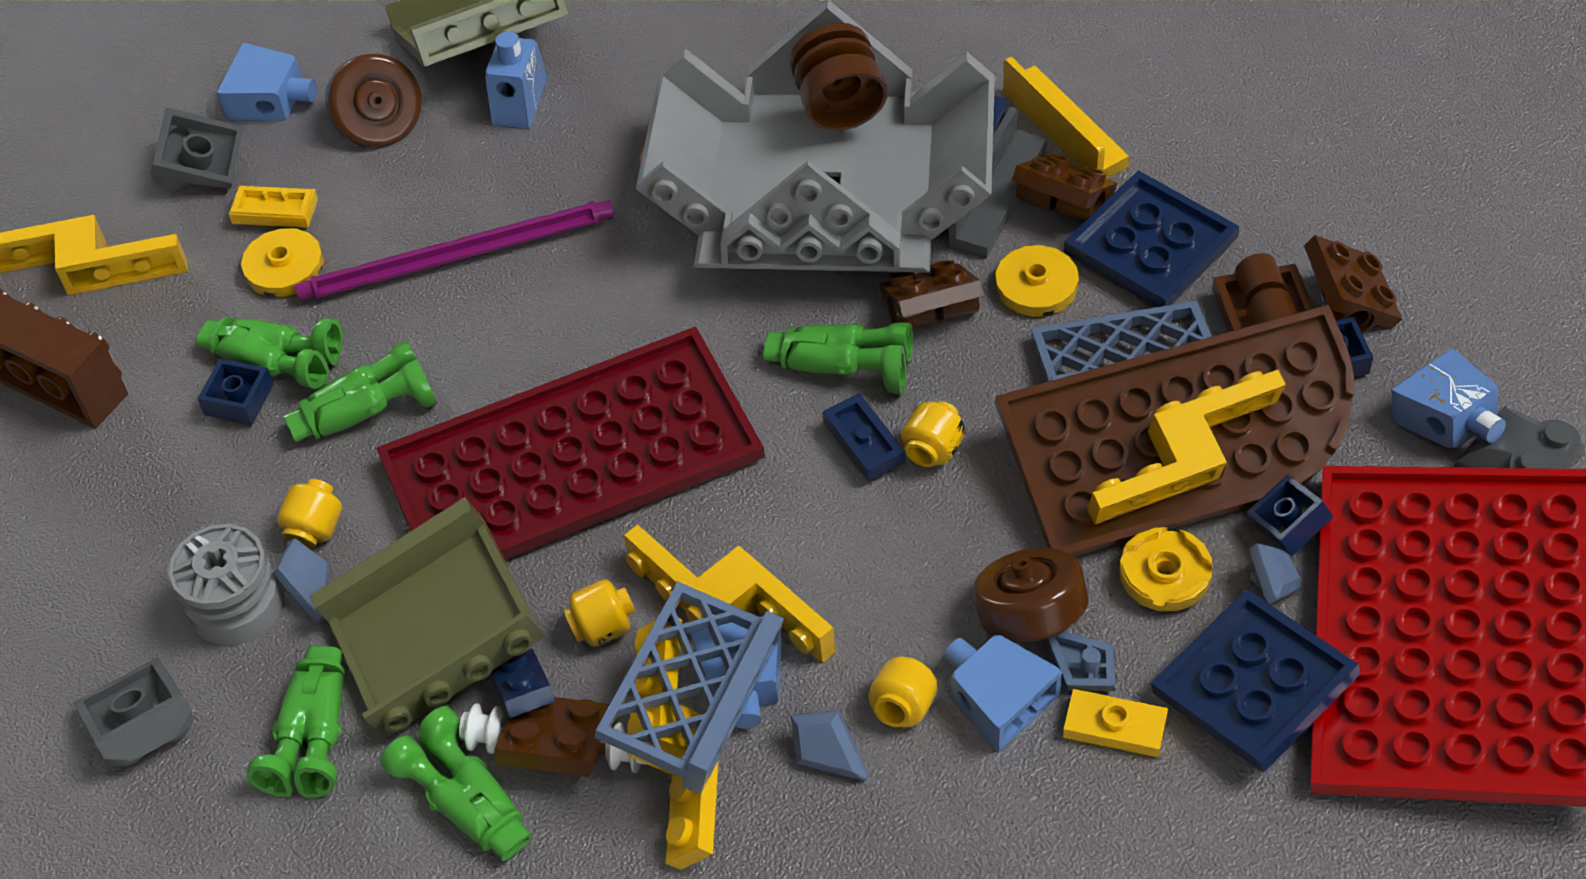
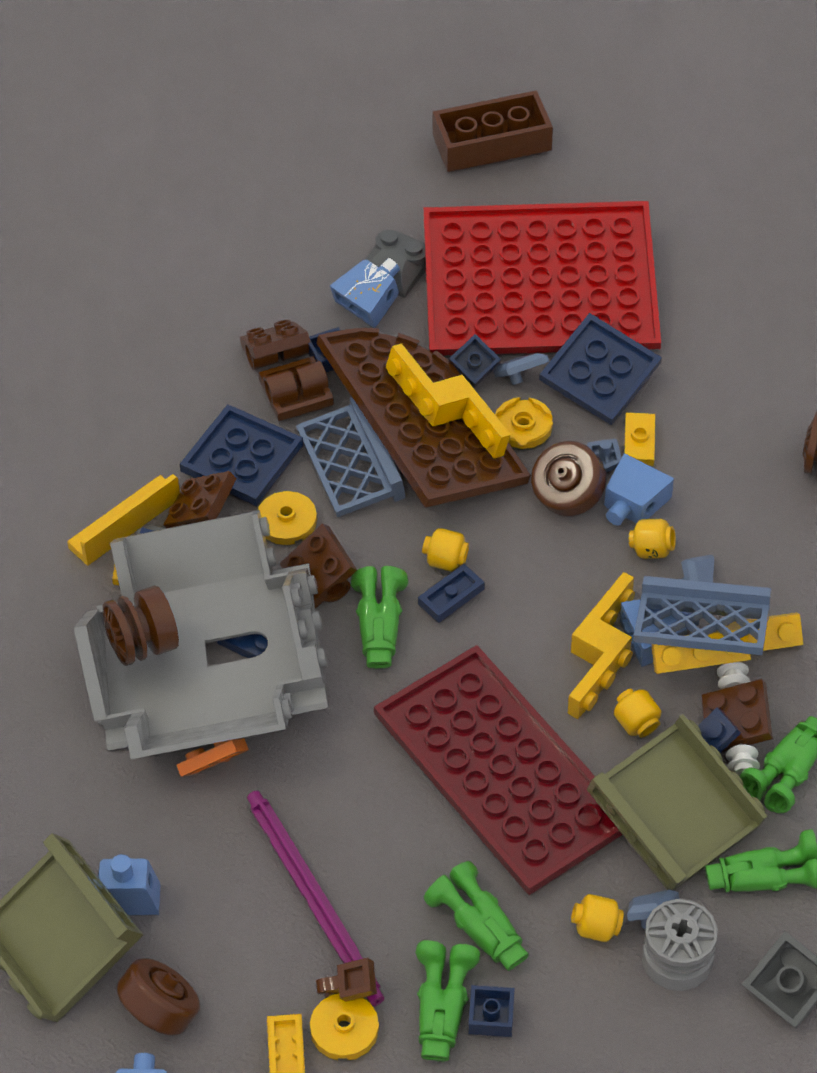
camera: 105 degrees left, 0 degrees up
(317, 259) = (353, 981): none -> reddish brown plate

